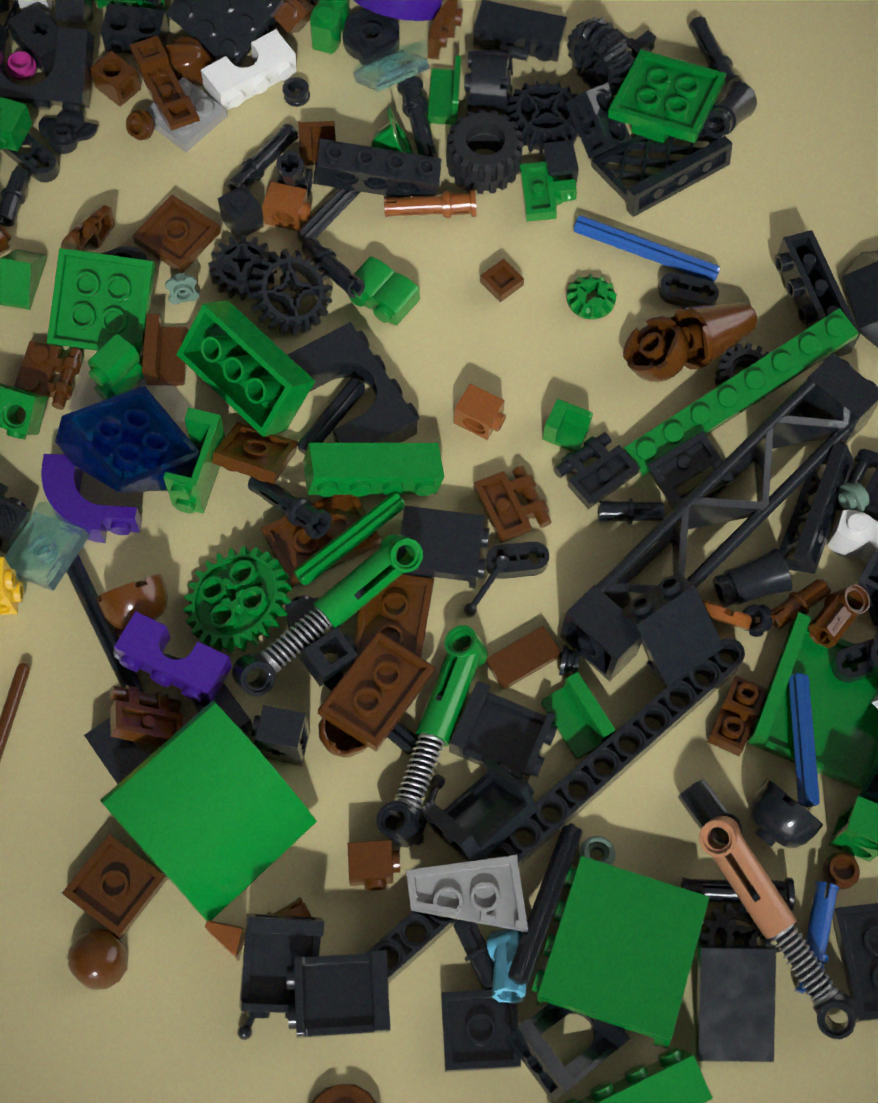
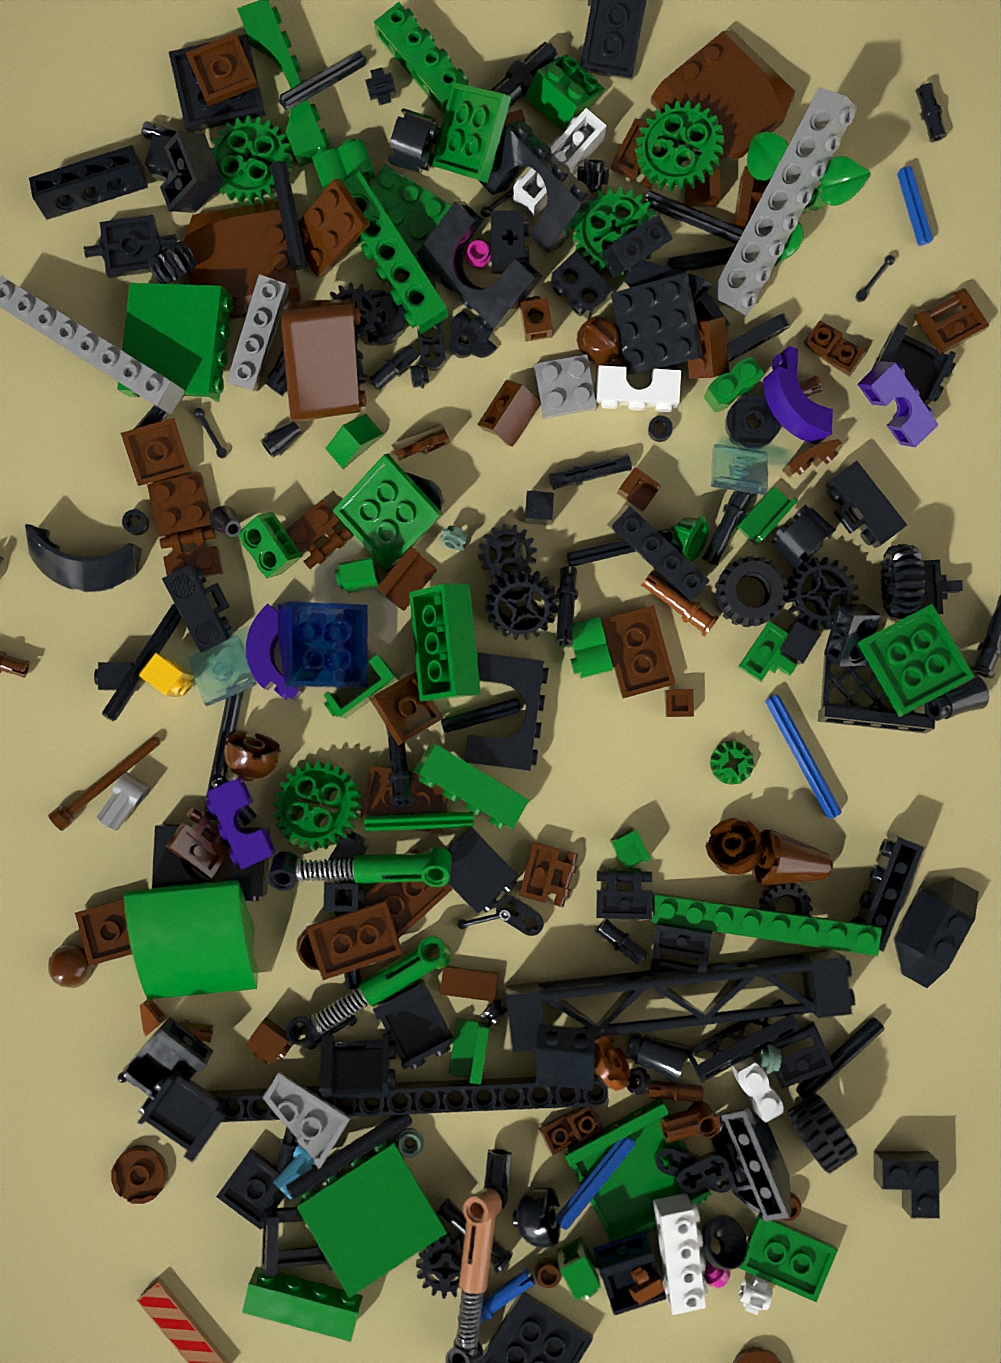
camera: 45 degrees right, 20 degrees up
(31, 738) = (126, 795): none -> light grey piece
(42, 187) = (419, 375): none -> black plate
(140, 124) = (524, 374): reddish brown plate -> none
(150, 161) = (509, 412): none -> reddish brown panel
(162, 84) = (562, 360): reddish brown slope -> none
(176, 234) = (483, 488): reddish brown plate -> none
(281, 734) = (272, 922): black brick -> none
(286, 206) = (575, 526): dark orange brick -> none
(293, 171) = (598, 508): black piece -> none
(432, 264) = (638, 652): none -> reddish brown plate
(479, 412) = (580, 794): dark orange brick -> none
(688, 290) = (808, 808): black beam -> none
(736, 1003) = (413, 1299): black tile -> none

